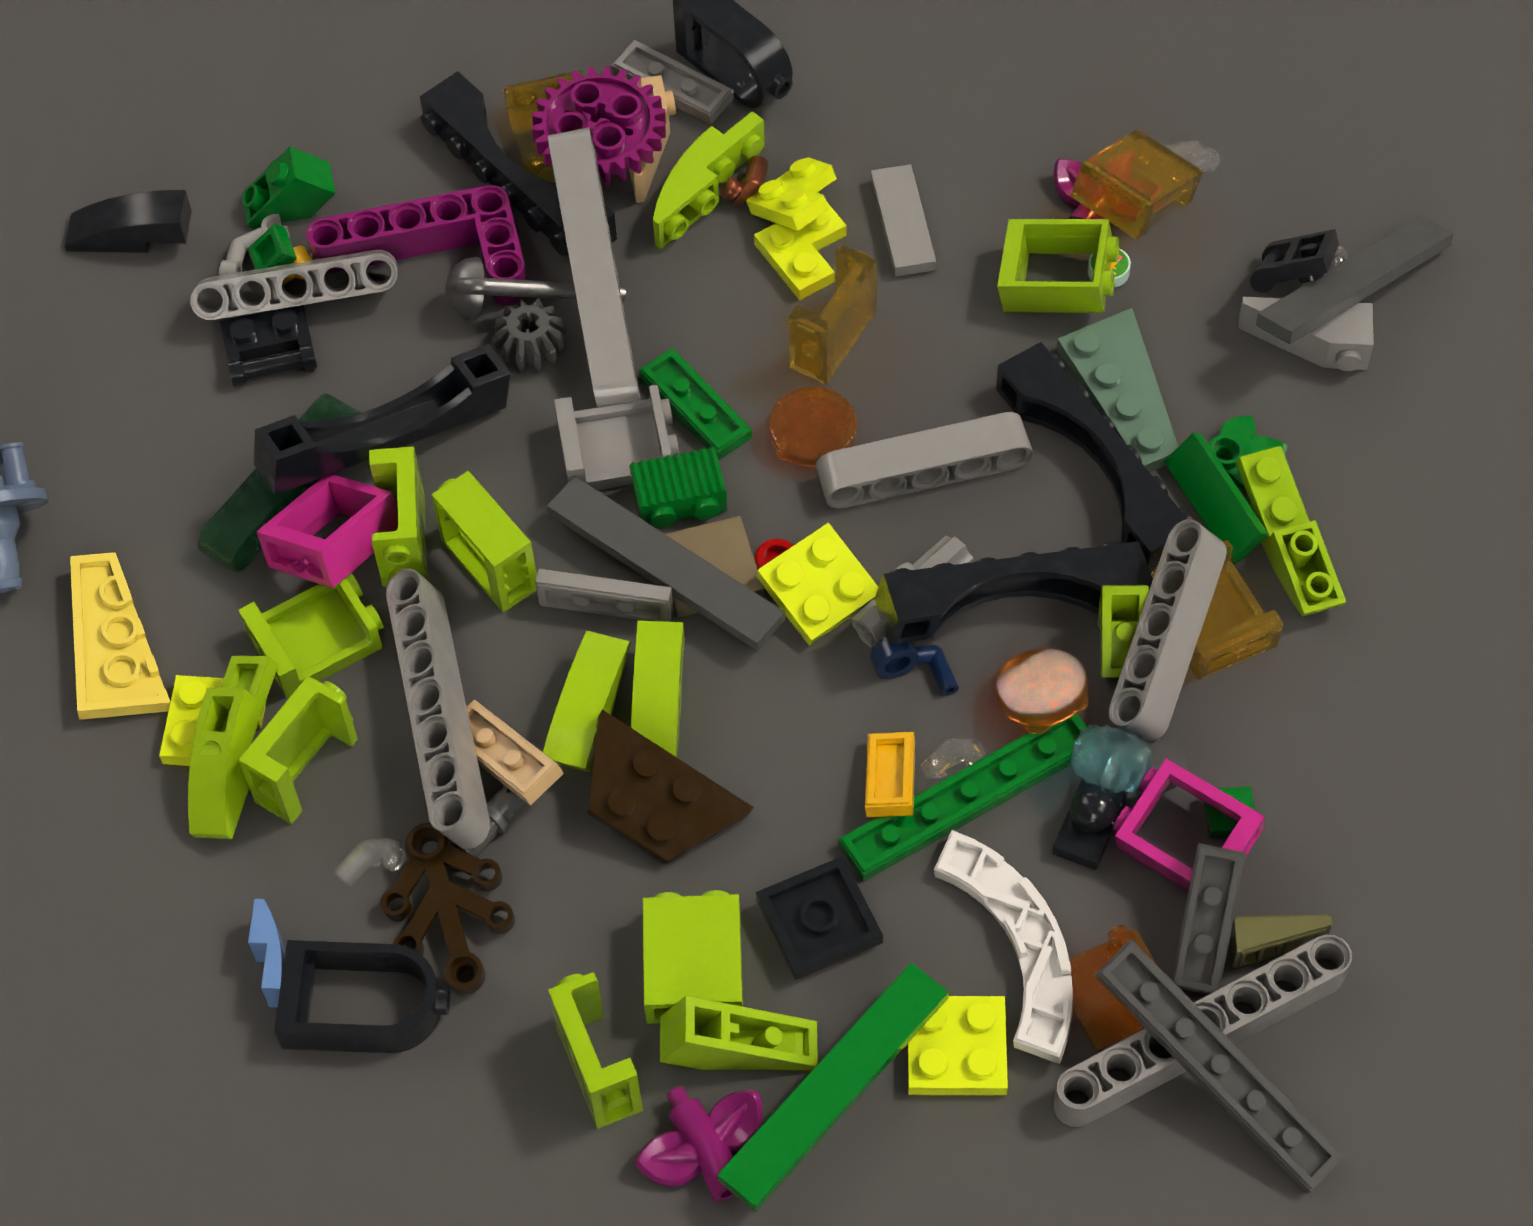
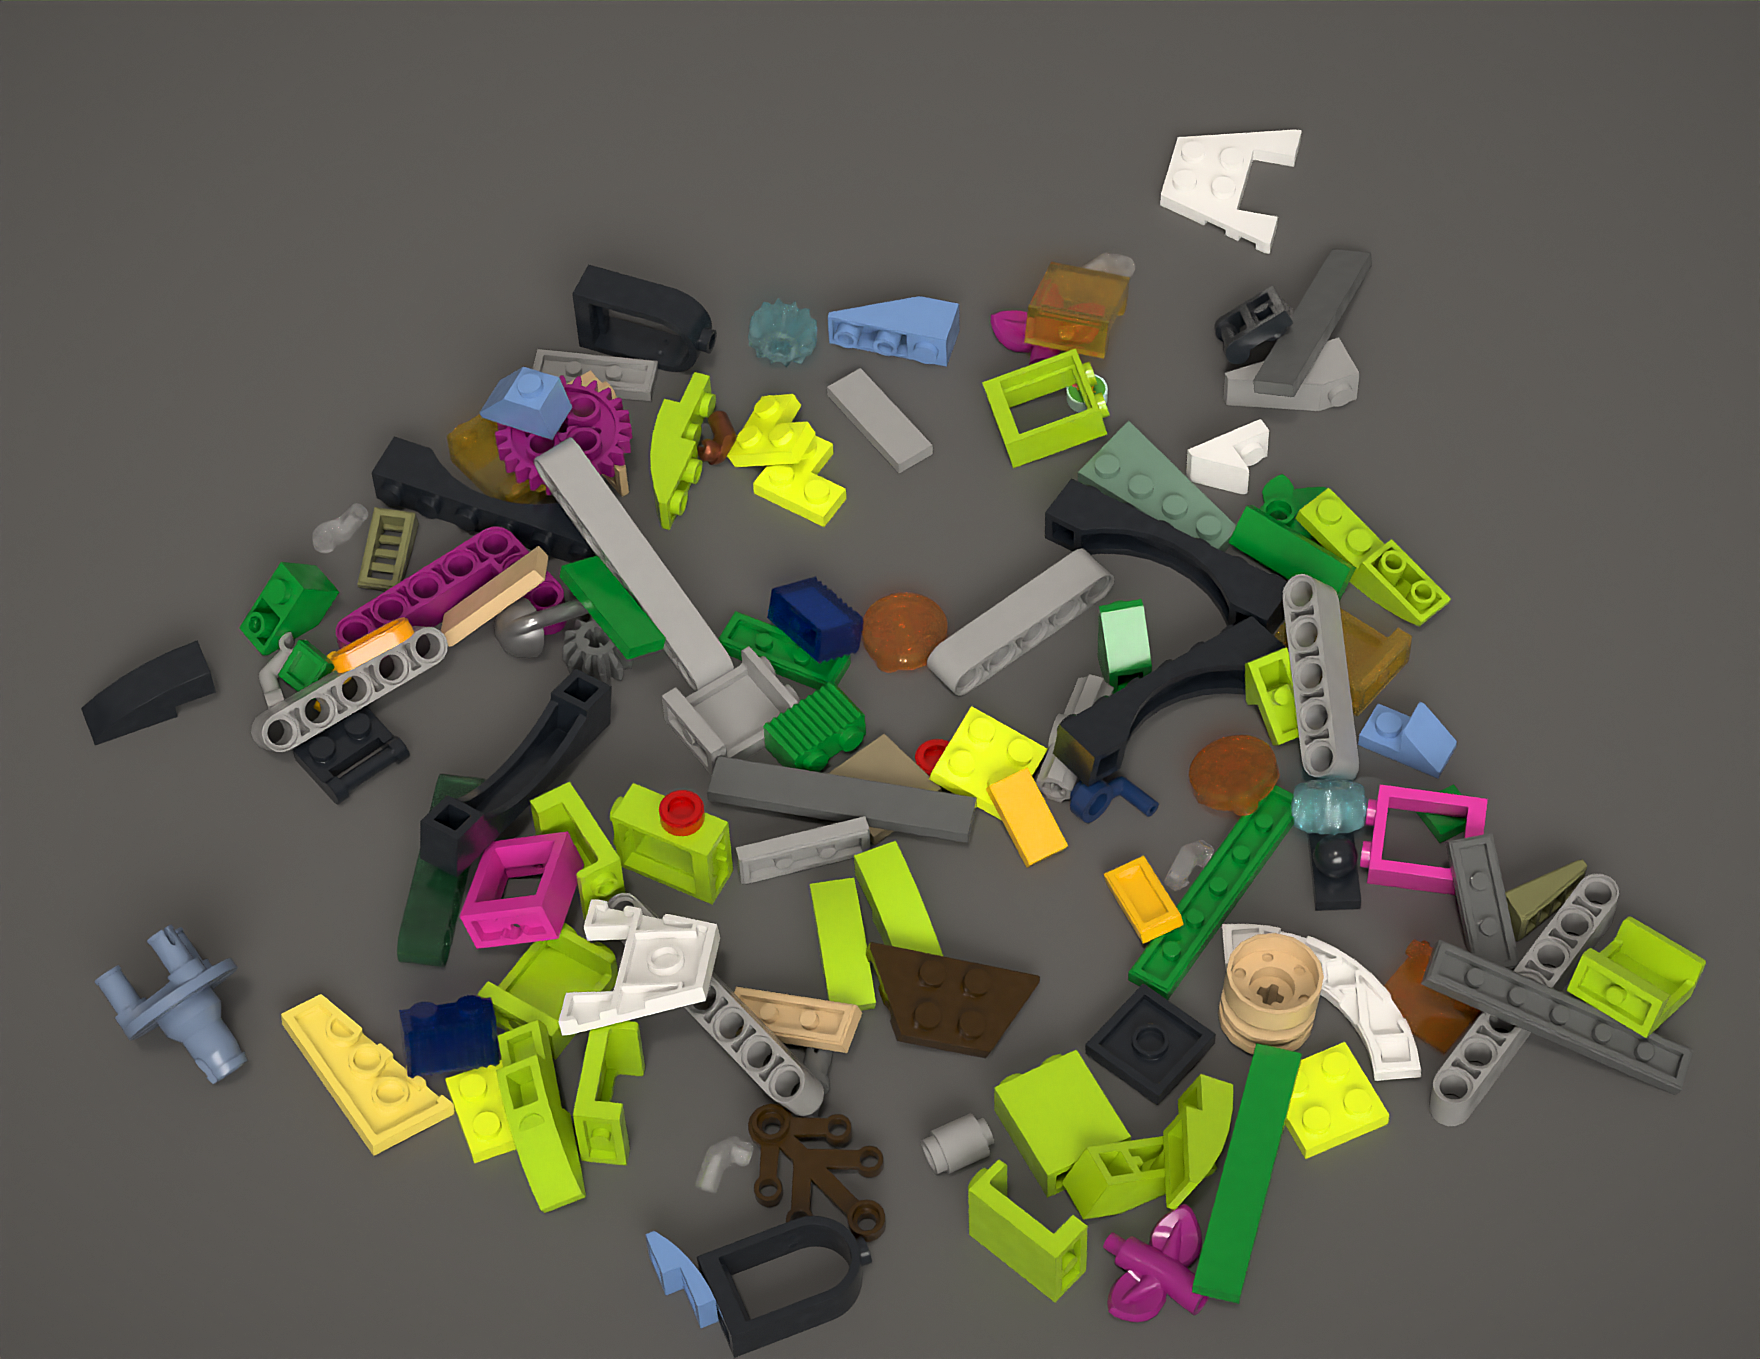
camera: 25 degrees left, 5 degrees down
(191, 637) = (449, 1036): none -> clear blue brick
(326, 252) = (372, 645): none -> light orange tile
(371, 137) = (340, 529): none -> clear arm
(390, 658) = (661, 968): none -> white wing
(401, 155) = (390, 520): none -> olive slope
(458, 250) = (495, 596): none -> tan tile
(492, 516) = (681, 813): none -> red tile
(554, 301) = (612, 607): none -> green tile
(575, 84) = (528, 402): none -> medium blue slope
(586, 936) = (957, 1144): none -> light grey brick
(734, 384) = (816, 619): none -> clear blue brick
(804, 1029) = (1196, 1136): none -> lime slope
(823, 649) = (1027, 817): none -> yellow tile
(824, 340) = (873, 547): clear yellow panel -> none
(853, 104) = (782, 332): none -> clear light blue gear
(951, 897) = (1270, 993): none -> tan wheel
(970, 141) = (902, 328): none -> medium blue slope
(1001, 518) = (1123, 643): none -> slope
(1198, 379) = (1225, 459): none -> white slope
(1233, 723) = (1412, 740): none -> medium blue slope
(1321, 1060) = (1637, 977): none -> lime panel
(1343, 102) = (1211, 176): none -> white wing

